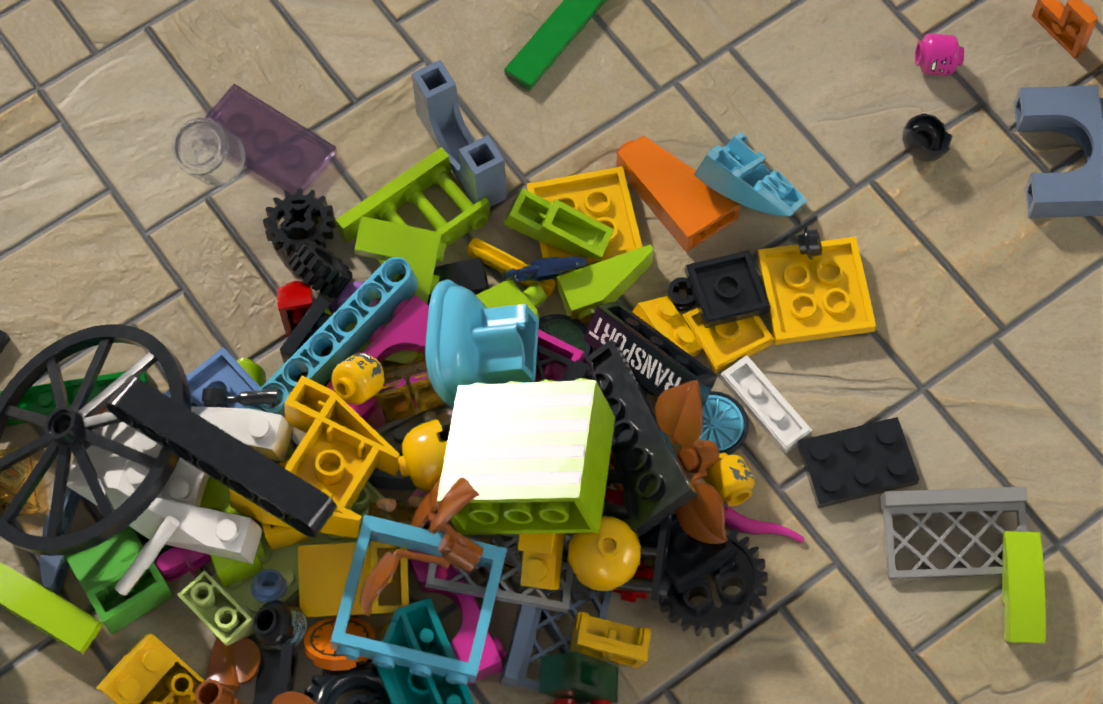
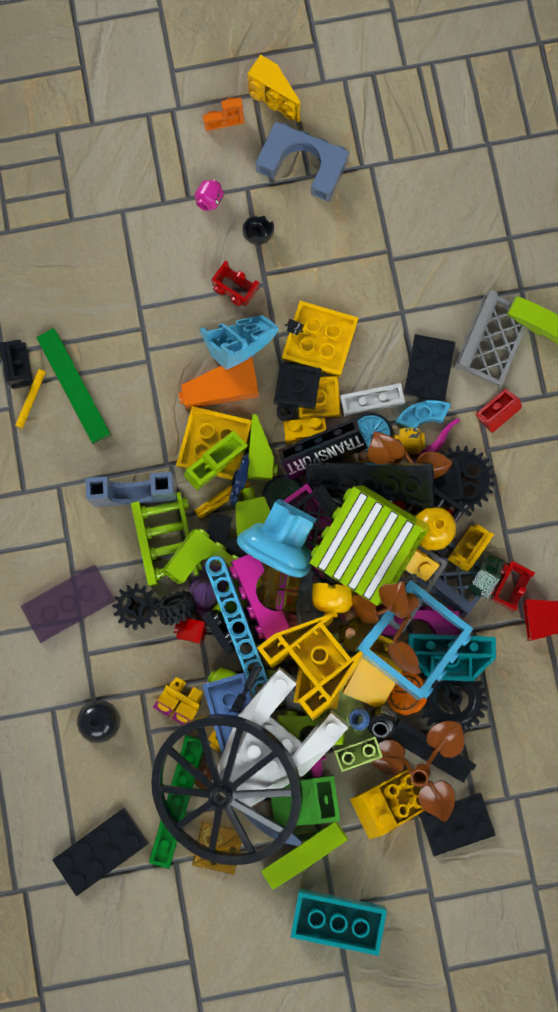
camera: 60 degrees left, 15 degrees up
(116, 249) = (98, 721): none -> black cylinder
(147, 555) = (319, 780): white piece -> none
(186, 331) = (172, 696): none -> yellow hips
(221, 159) = (65, 630): clear piece -> none
(222, 456) = (293, 715): black beam -> none
(358, 378) = (271, 616): yellow head -> none
(784, 484) = (422, 413): none -> medium azure tile
(834, 121) = (239, 279): none -> red window
(849, 593) = (499, 410): none -> red slope

